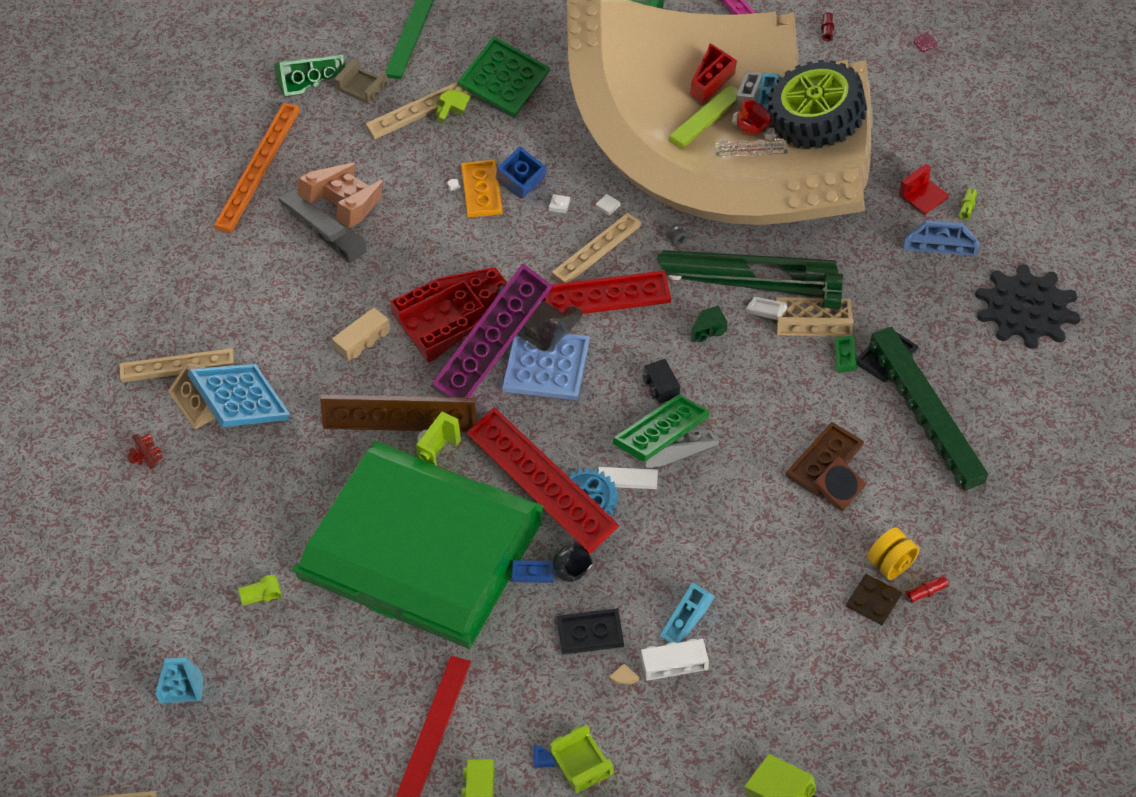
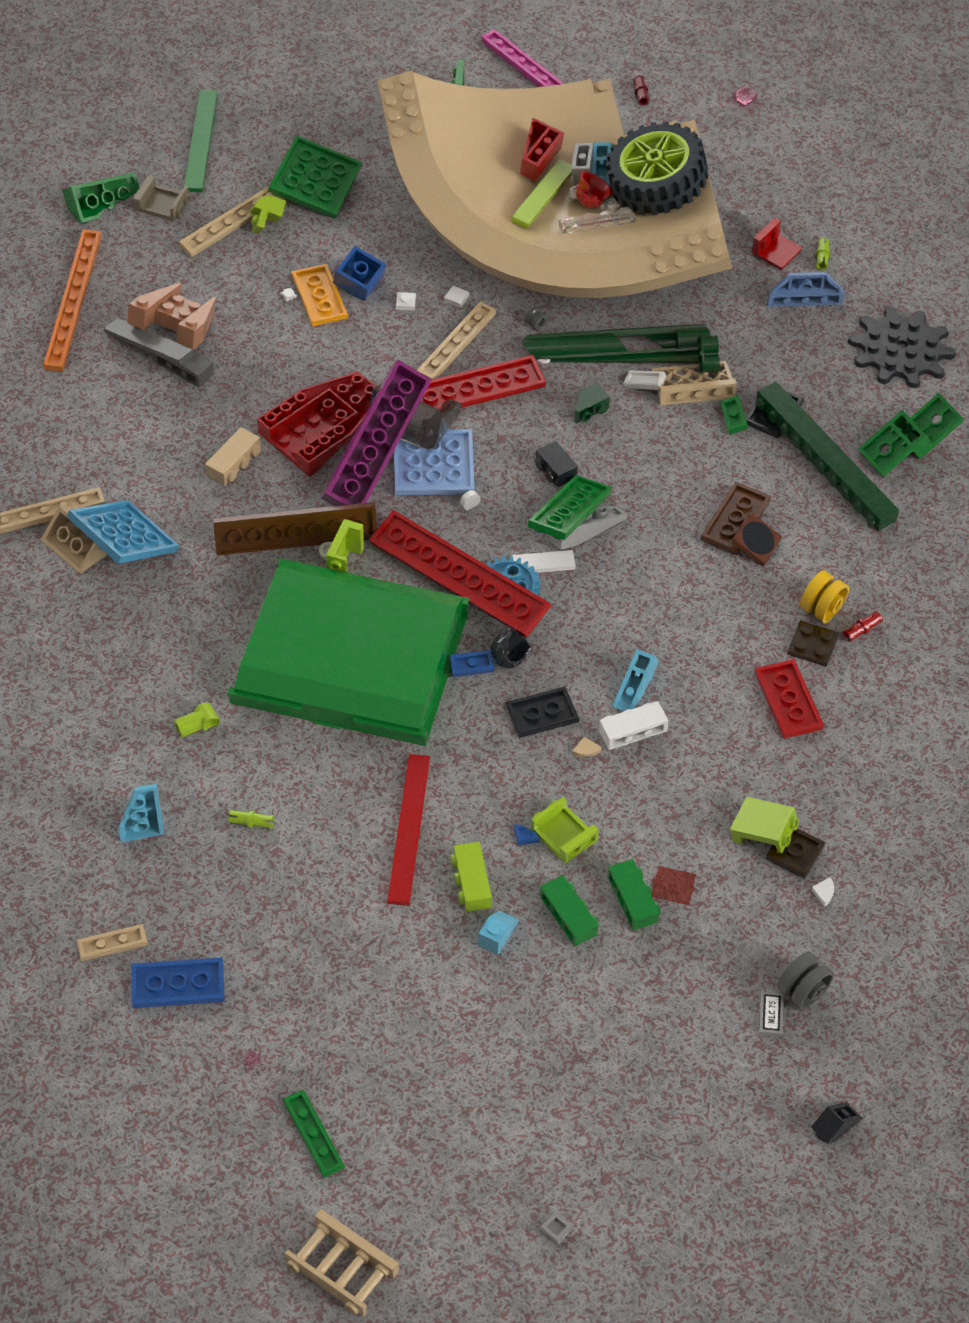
camera: 15 degrees left, 0 degrees up
(141, 452) = (31, 603): clear red hips -> none
(284, 699) = (251, 819): none -> lime pin
(571, 406) = (470, 500): none -> white tile
(836, 654) = (789, 698): none -> red plate
(1016, 397) = (911, 434): none -> green bracket

